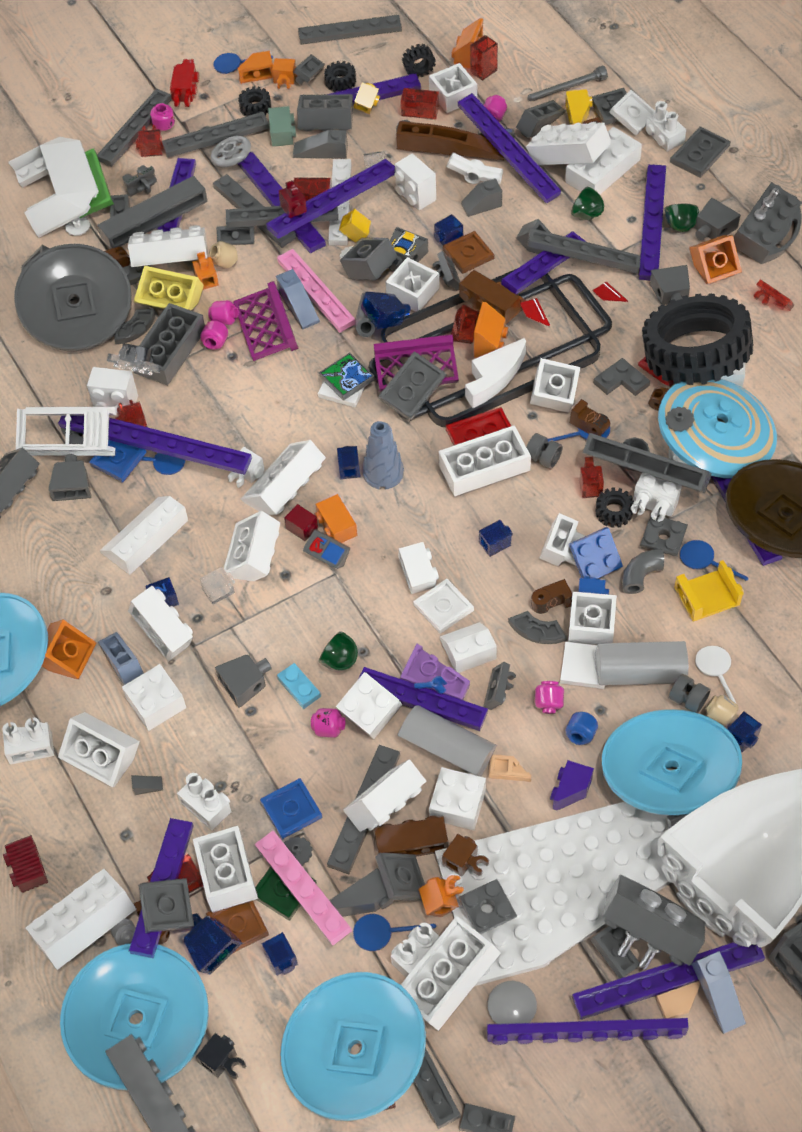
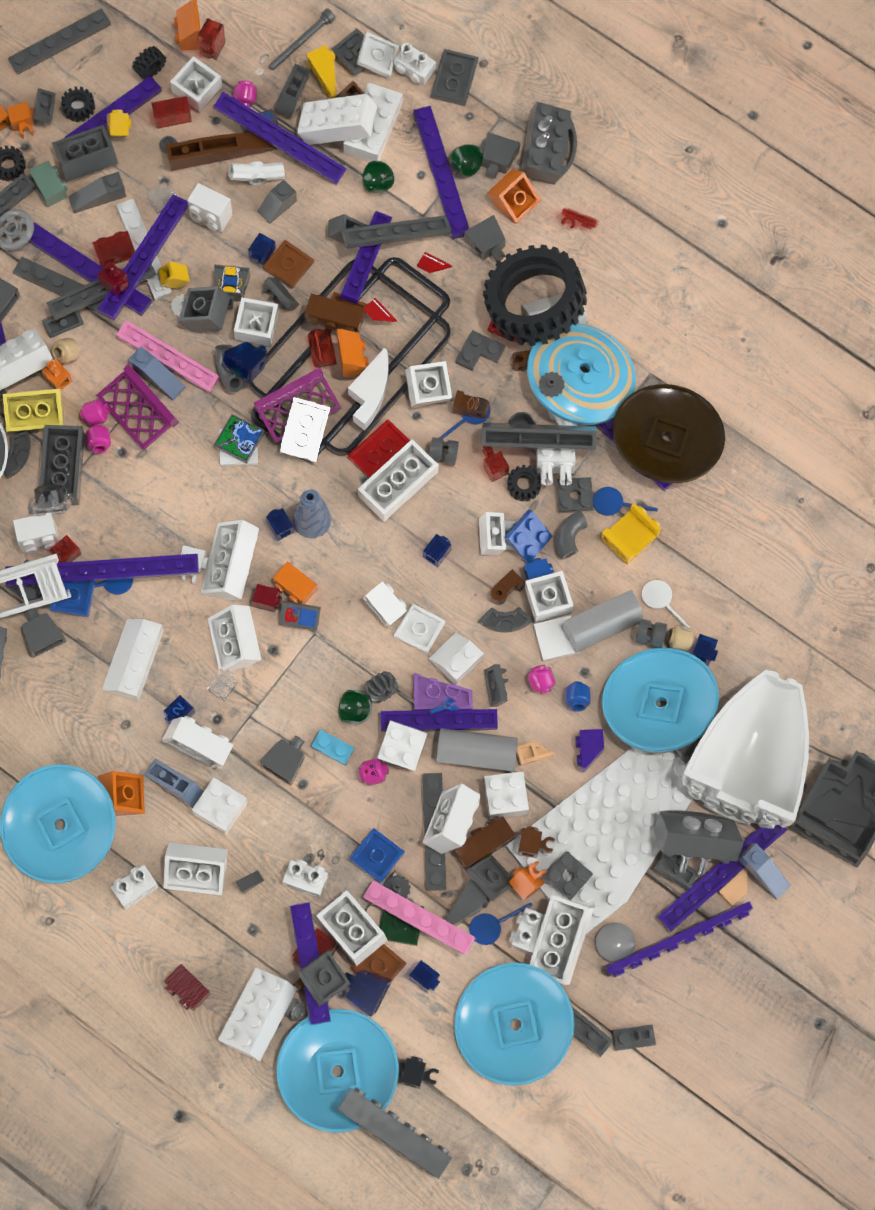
camera: 30 degrees left, 15 degrees up
(375, 642) = (381, 687): none -> dark grey gear

